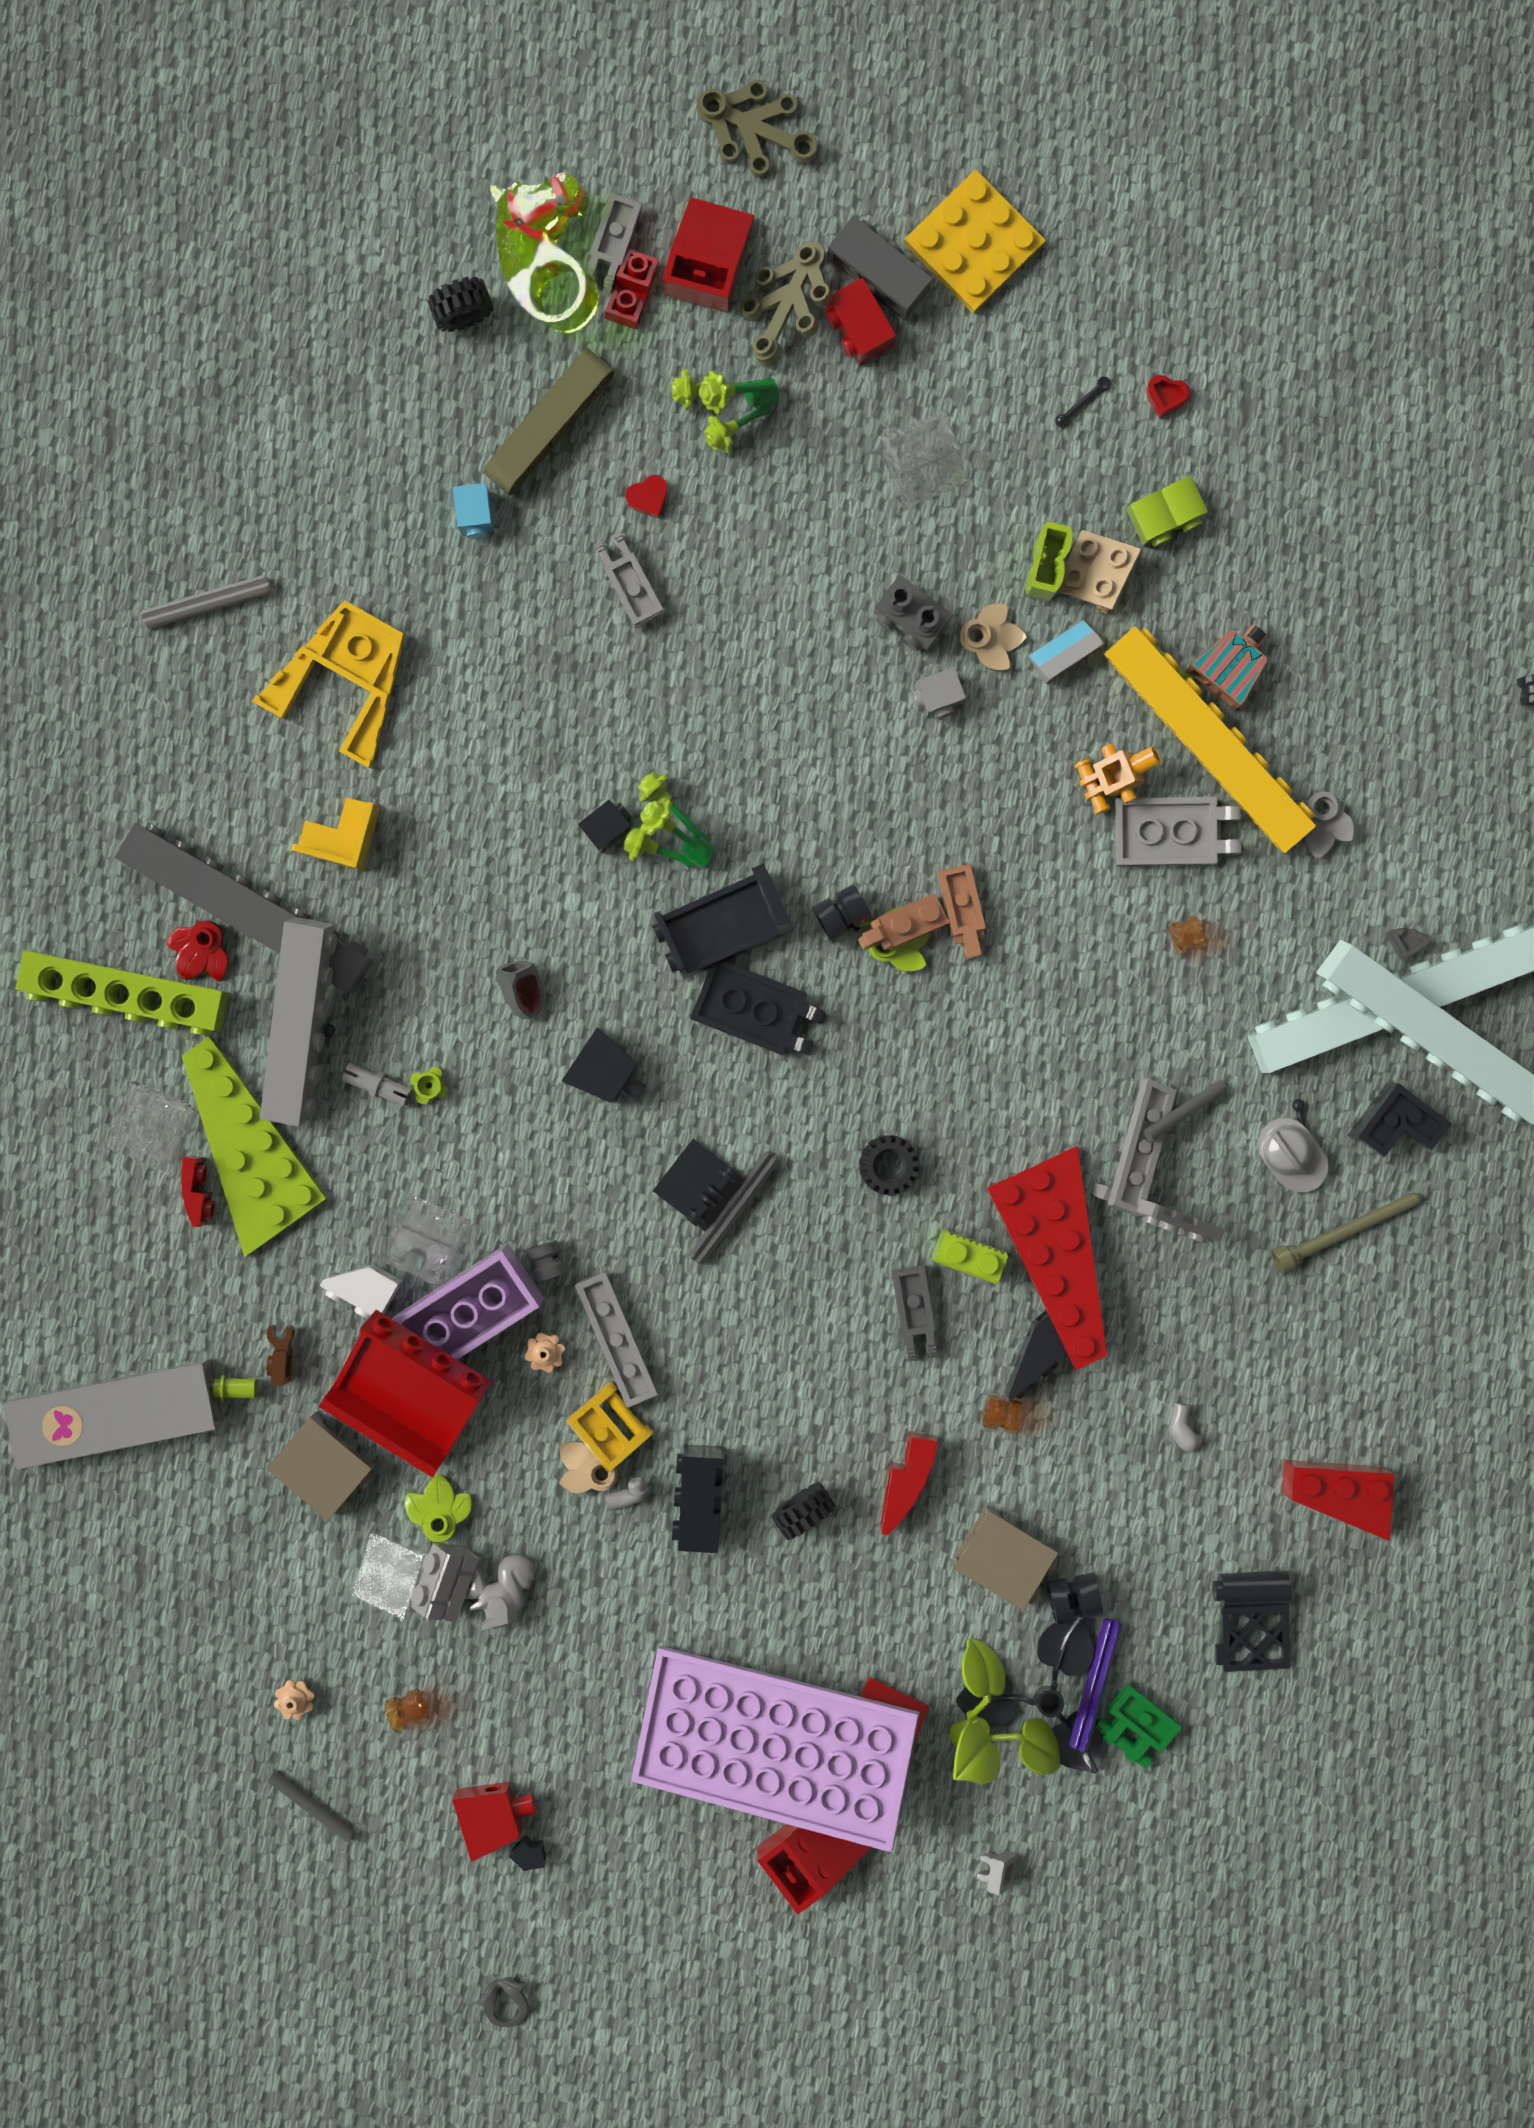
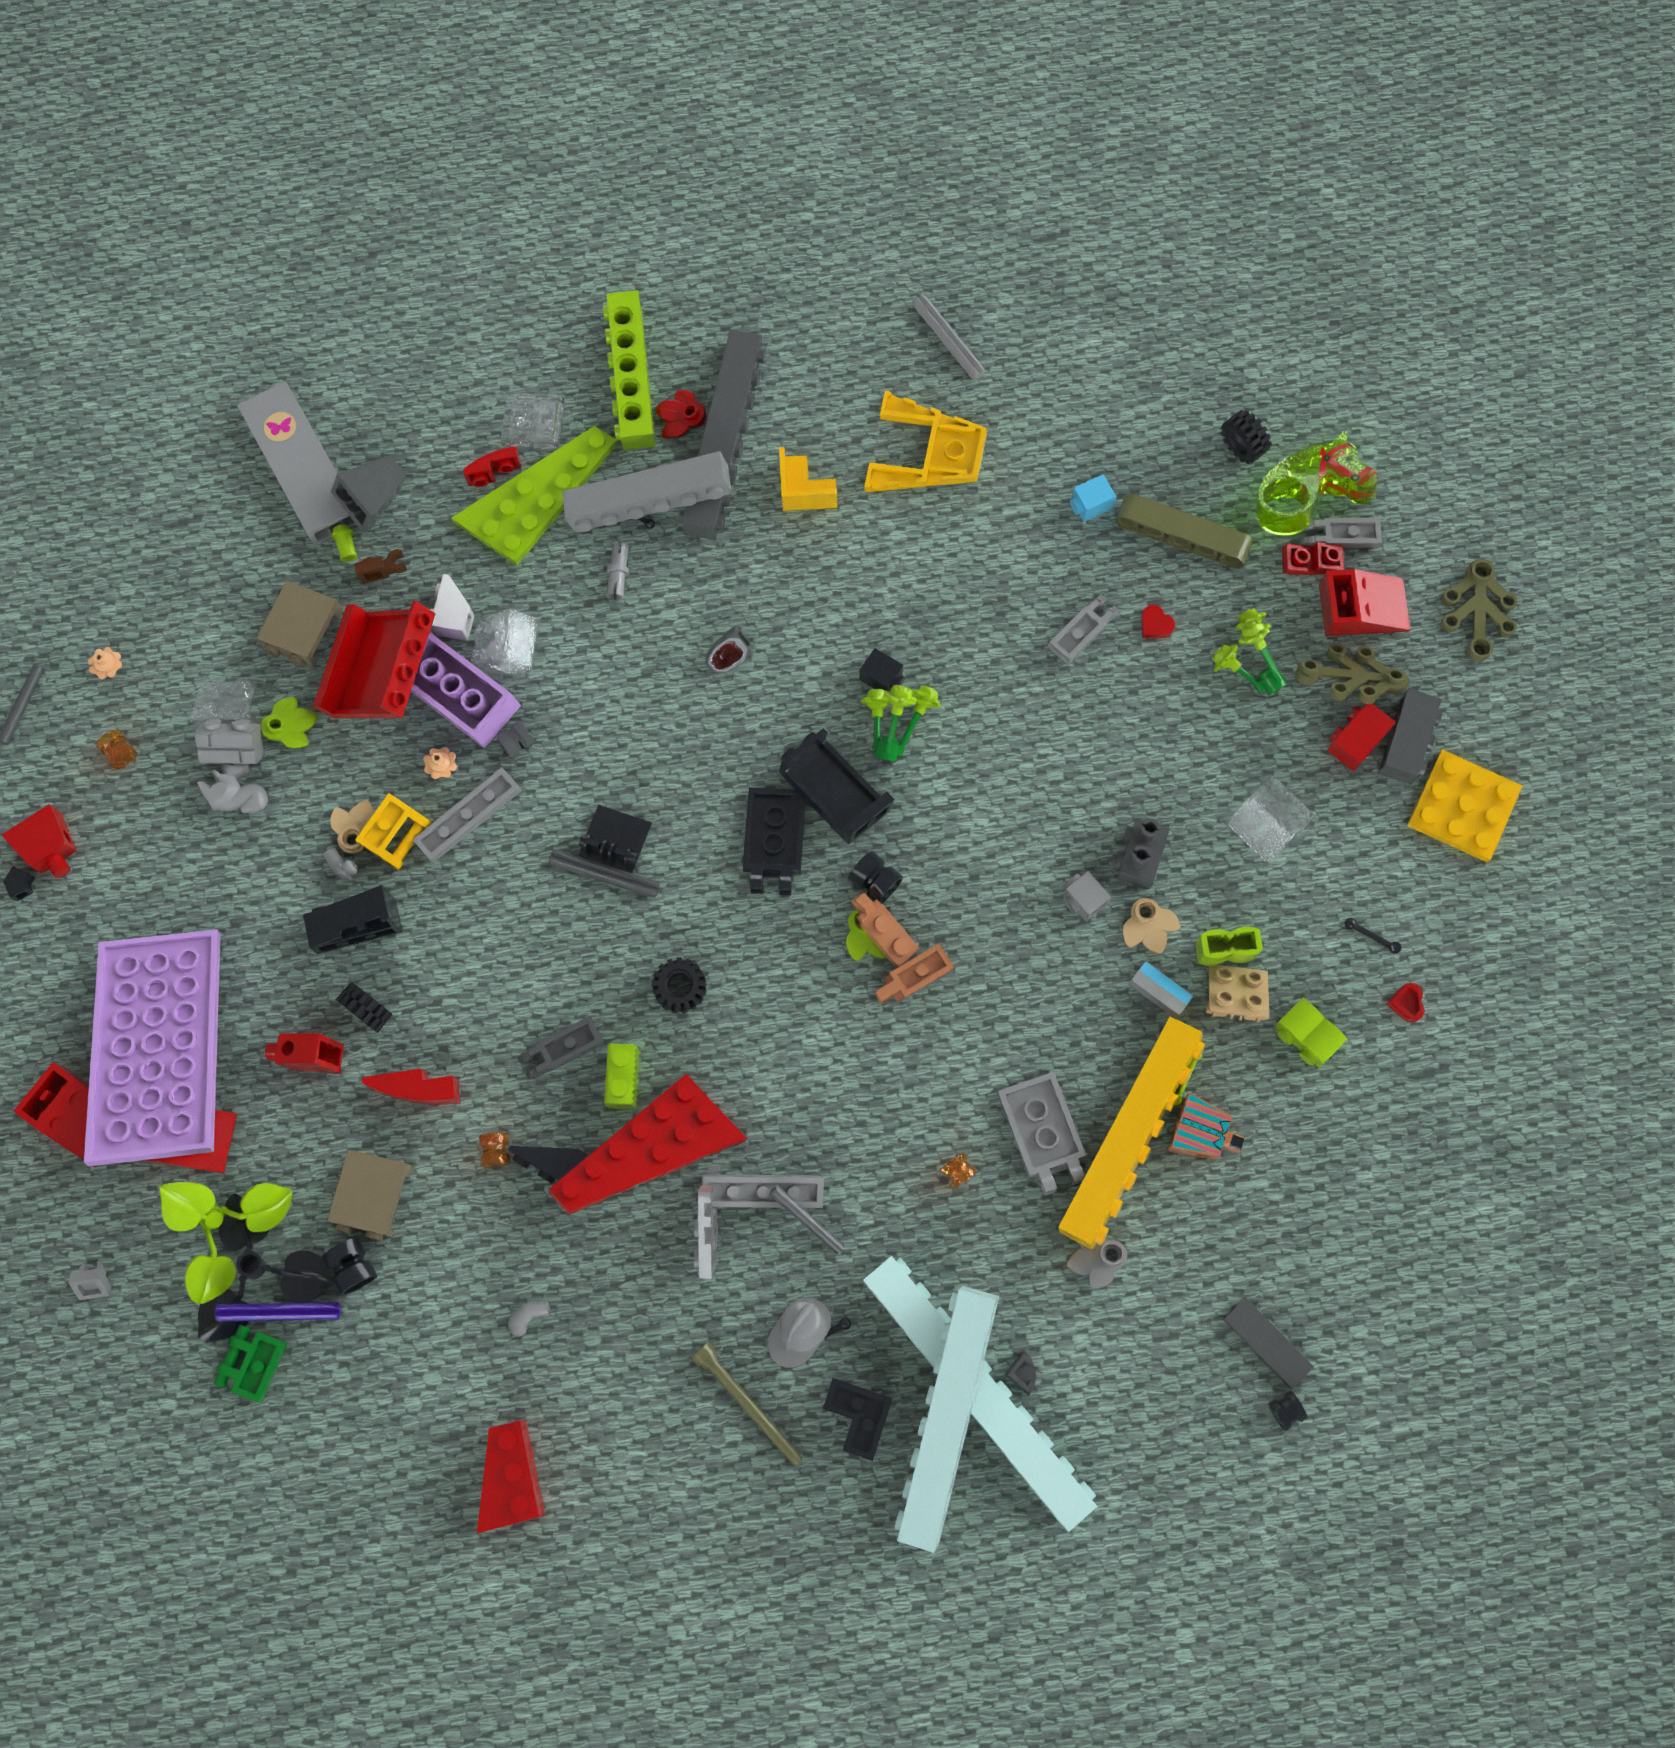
camera: 75 degrees right, 15 degrees down
(184, 1343) = (369, 490): none -> dark grey slope
(423, 1093) = (626, 602): lime plate -> none
(604, 1070) = (685, 734): black torso -> none
(832, 1587) = (306, 1052): none -> red torso
(1117, 775) = (1072, 1062): light orange piece -> none
(1257, 1594) = (396, 1430): black piece -> none
(1461, 682) = (1268, 1343): none -> dark grey tile

